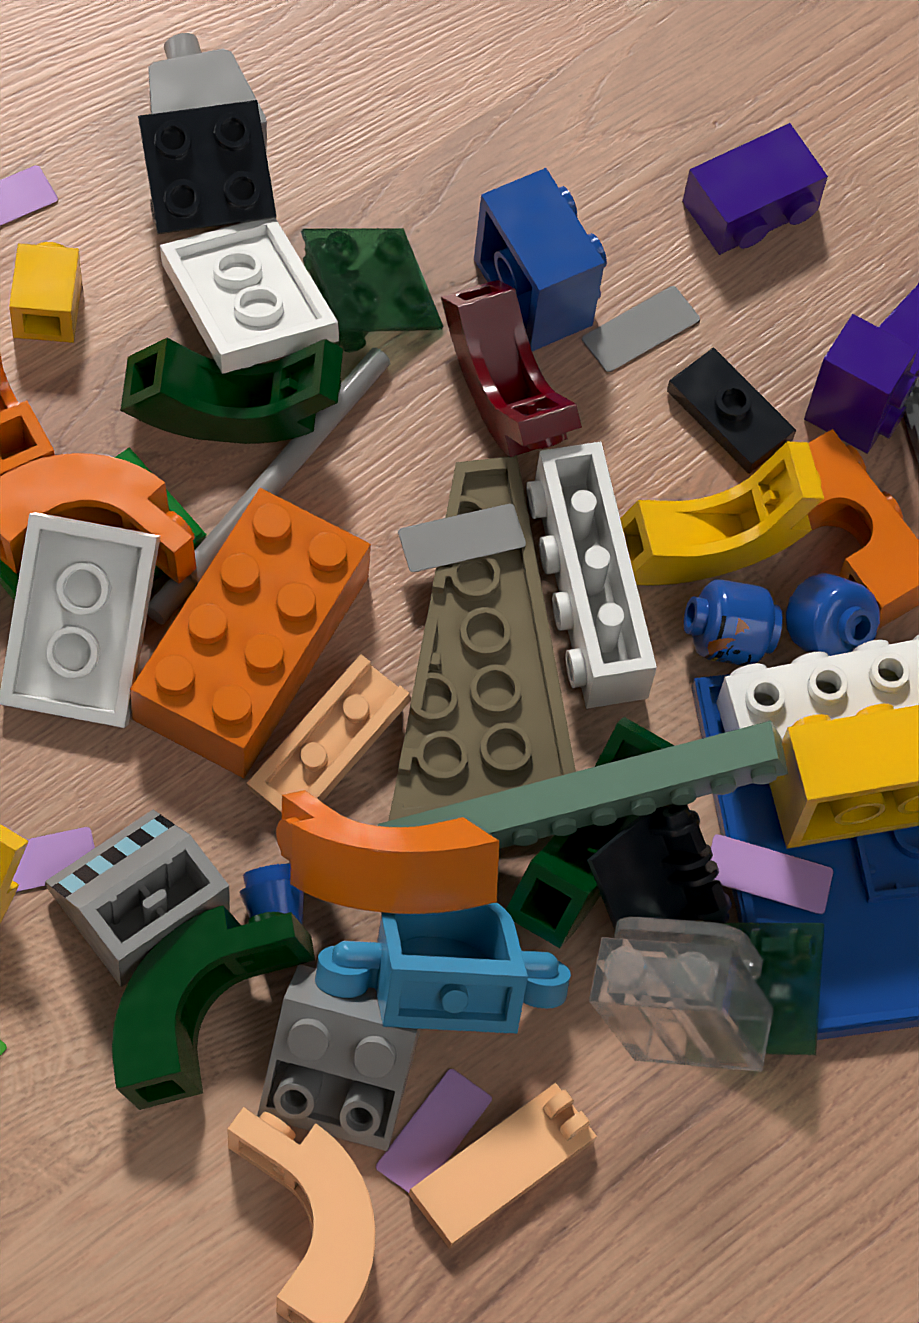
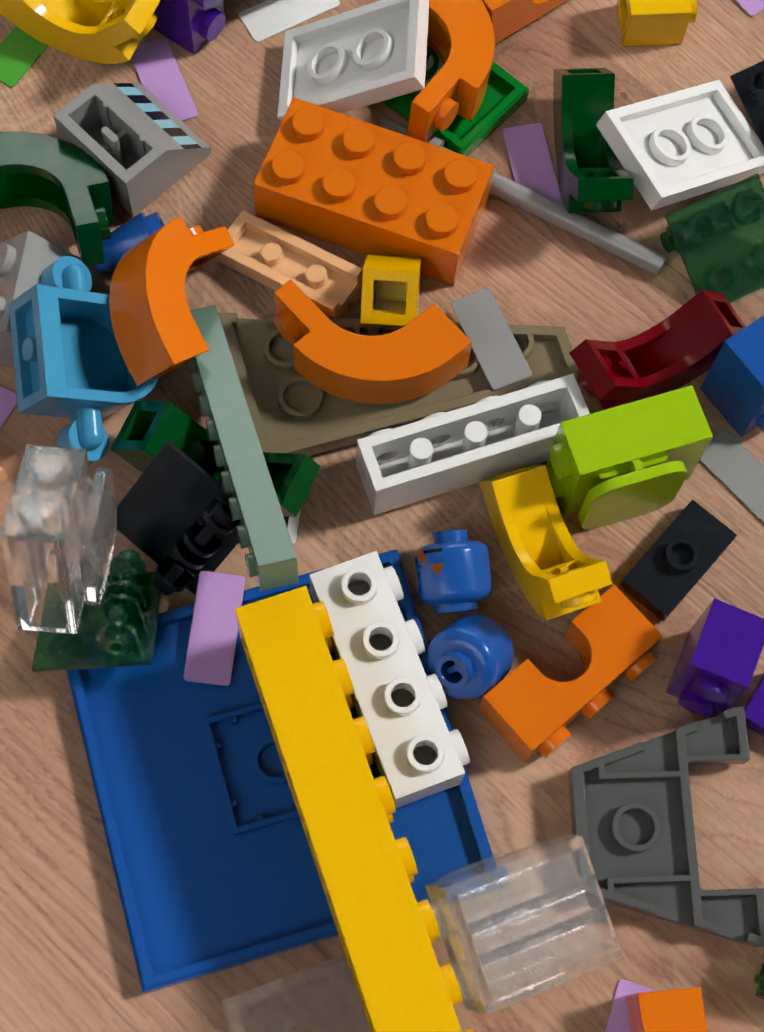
camera: 85 degrees right, 5 degrees up
(217, 466) = (531, 160): none -> lavender sticker
(392, 627) = (390, 289): none -> yellow brick
(497, 619) = (366, 367): none -> orange arch
(637, 415) = (627, 457): none -> lime brick

